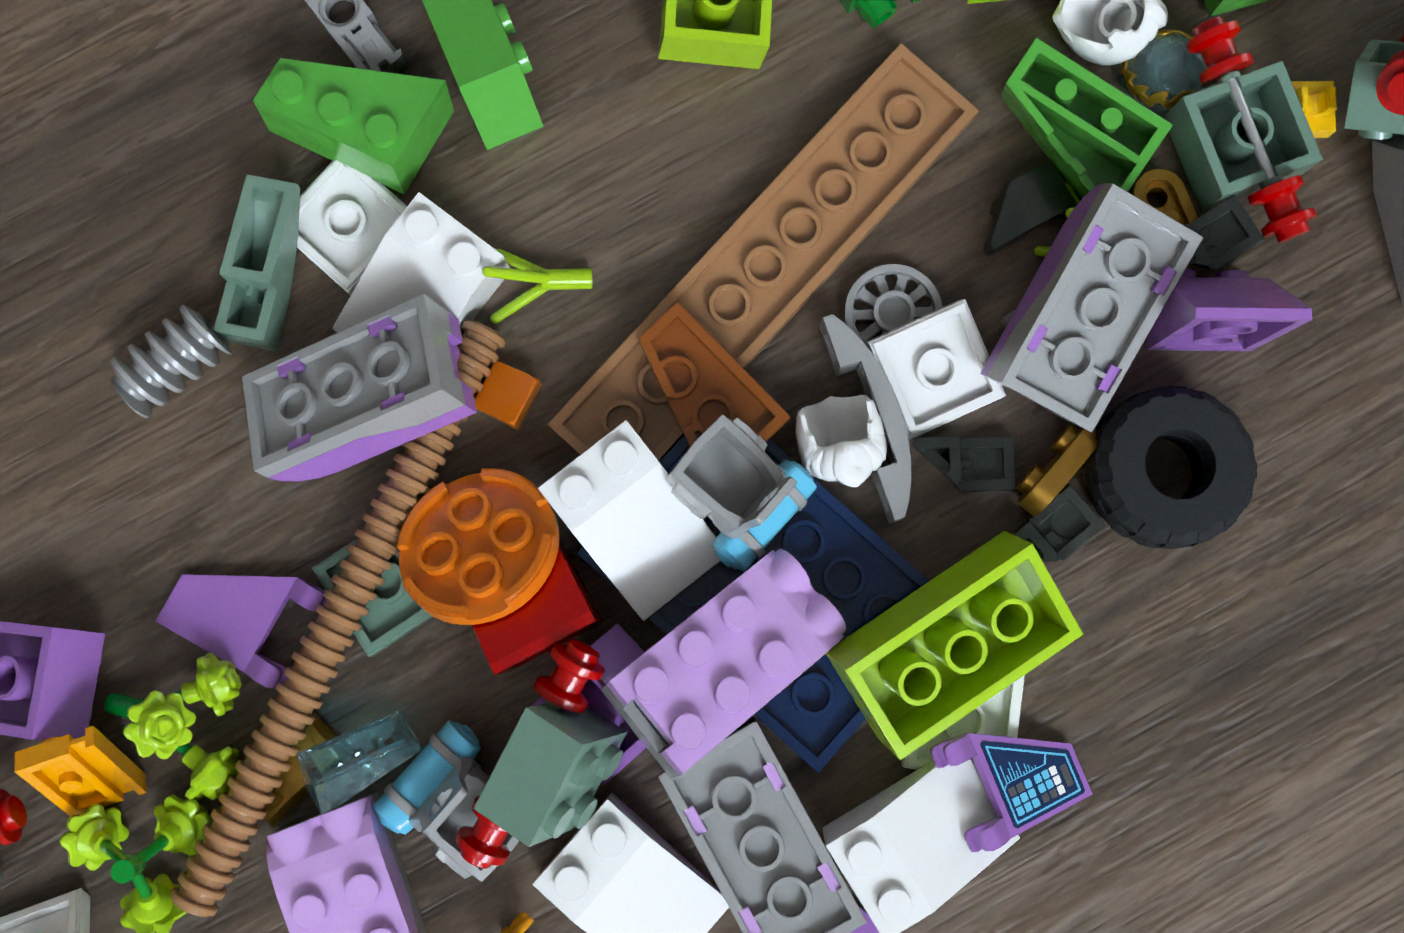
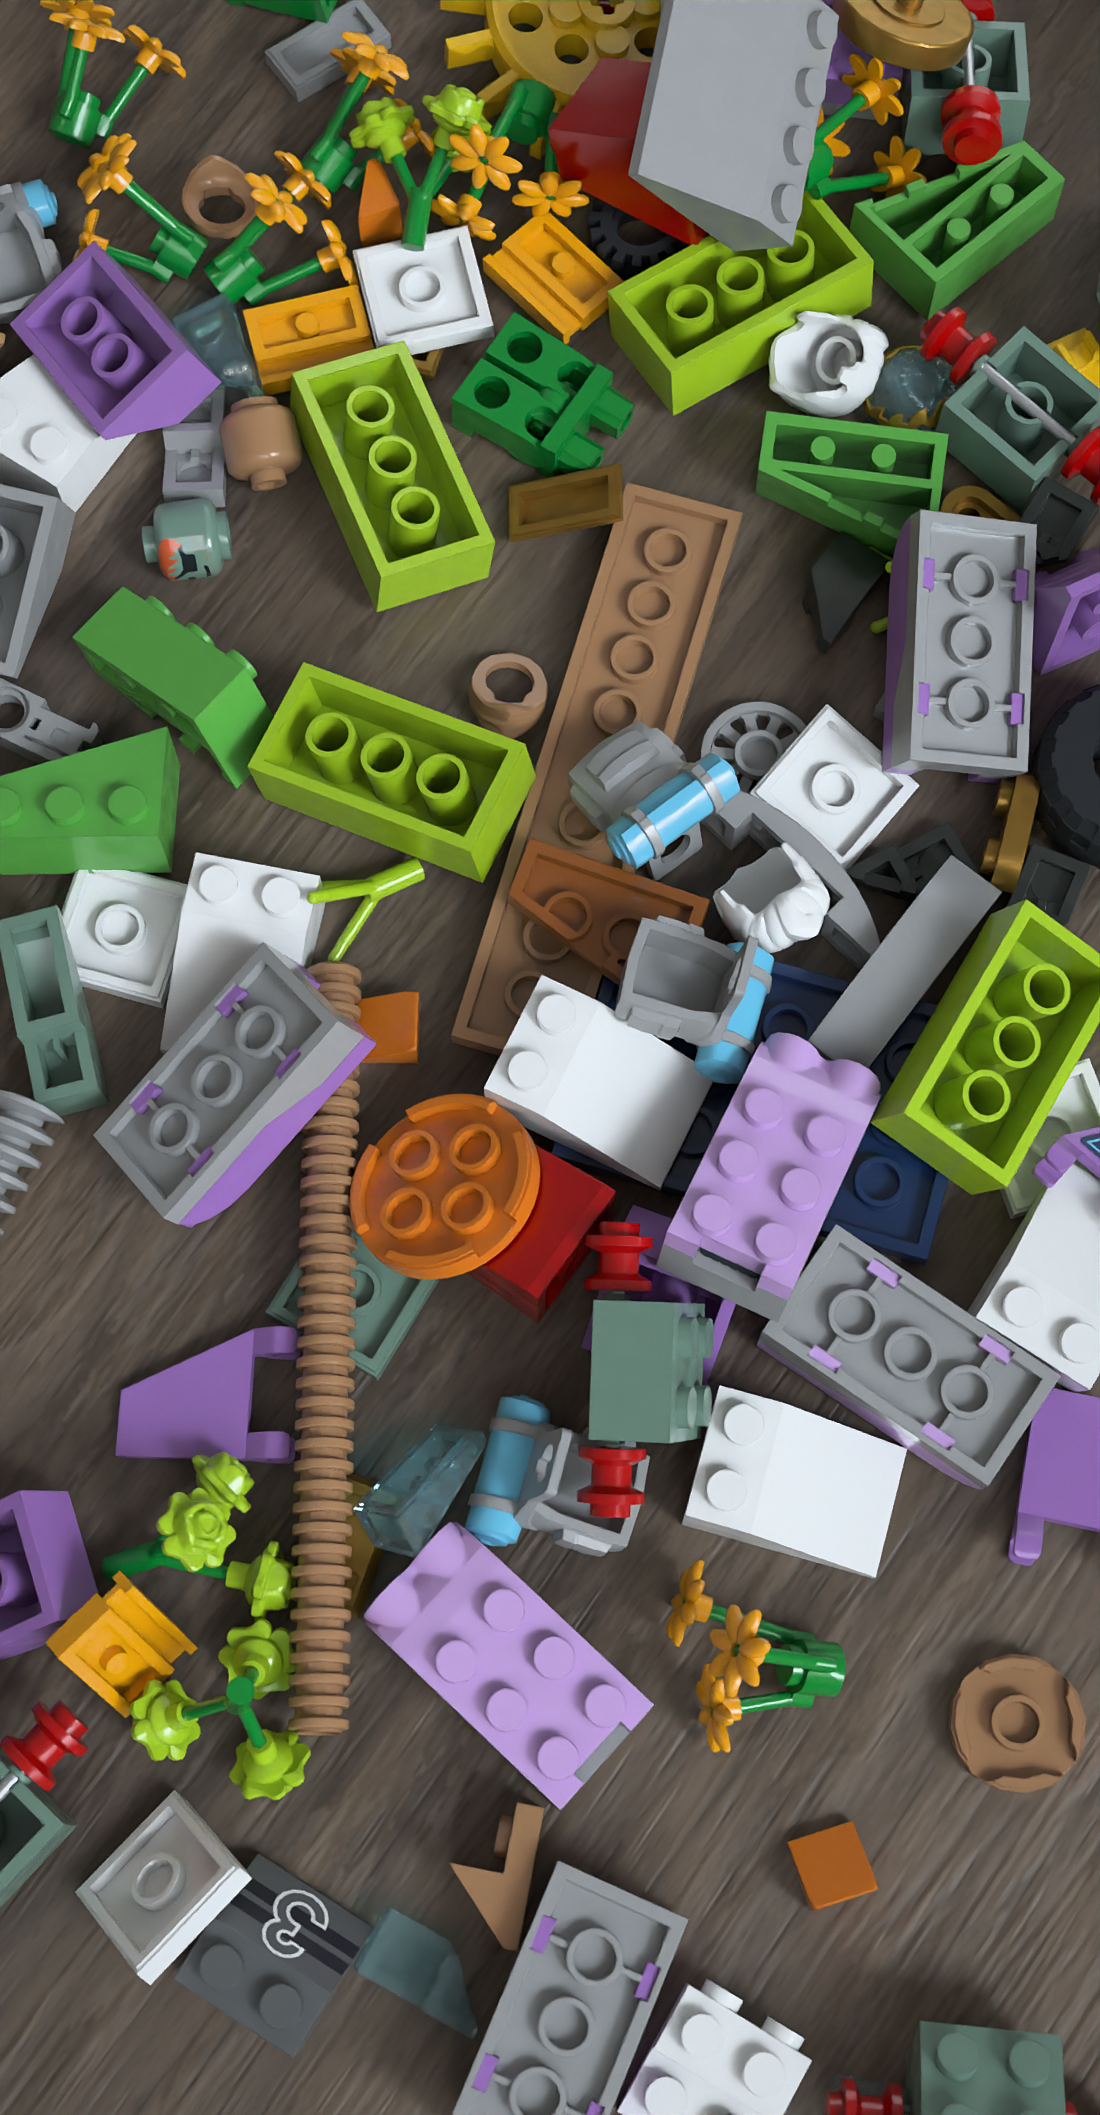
camera: 30 degrees left, 10 degrees down
(602, 195) = (393, 771): none -> lime brick
(718, 194) = (504, 717): none -> medium nougat piece
(784, 311) = (650, 796): none -> light grey piece
(845, 38) = (565, 503): none -> pearl gold tile
(917, 539) = (905, 965): none -> light grey slope

